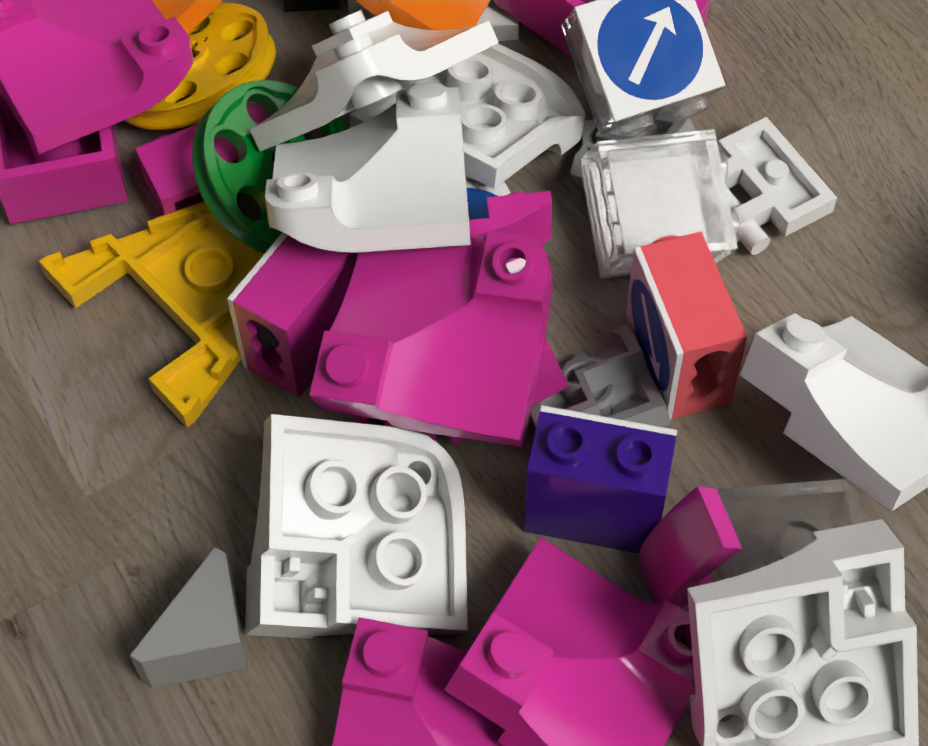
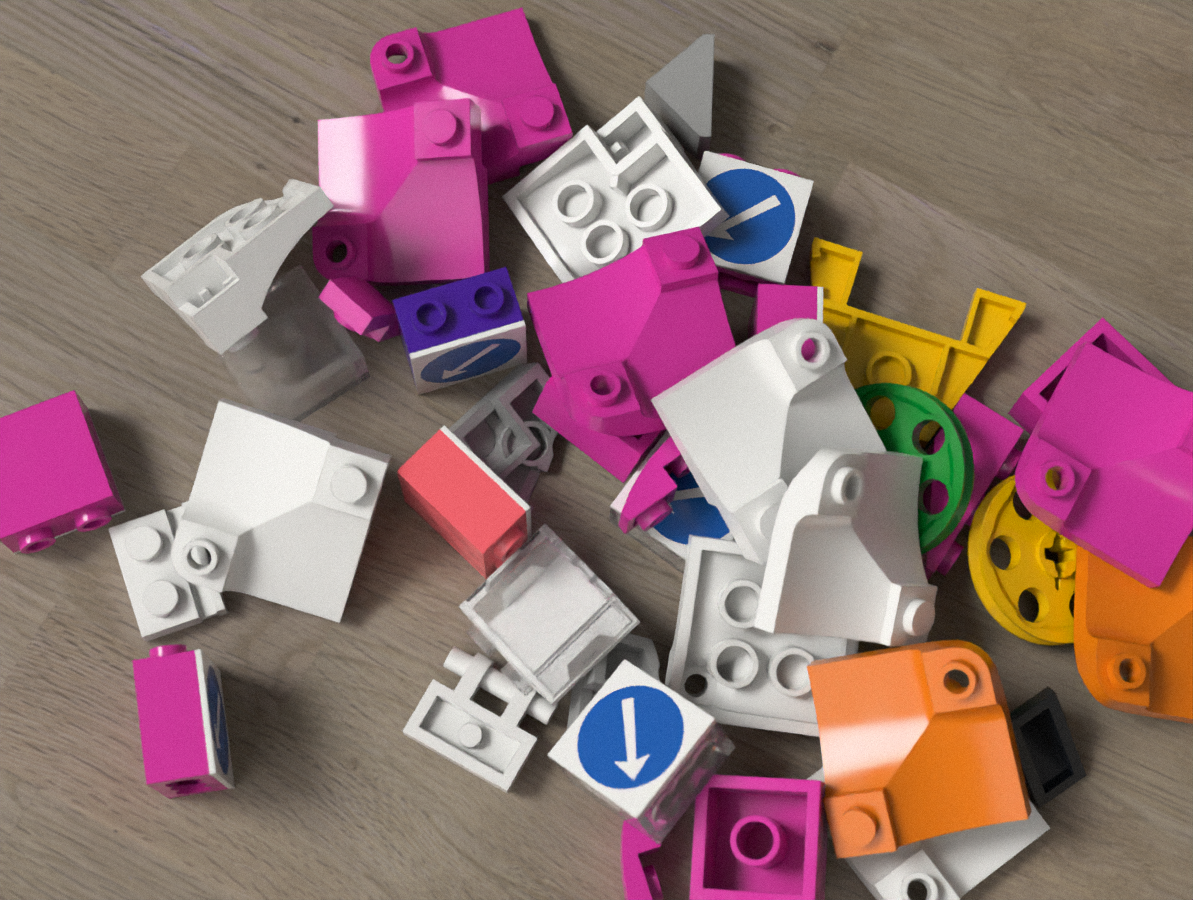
camera: 145 degrees right, 15 degrees up
(216, 459) = (762, 221): none -> piece

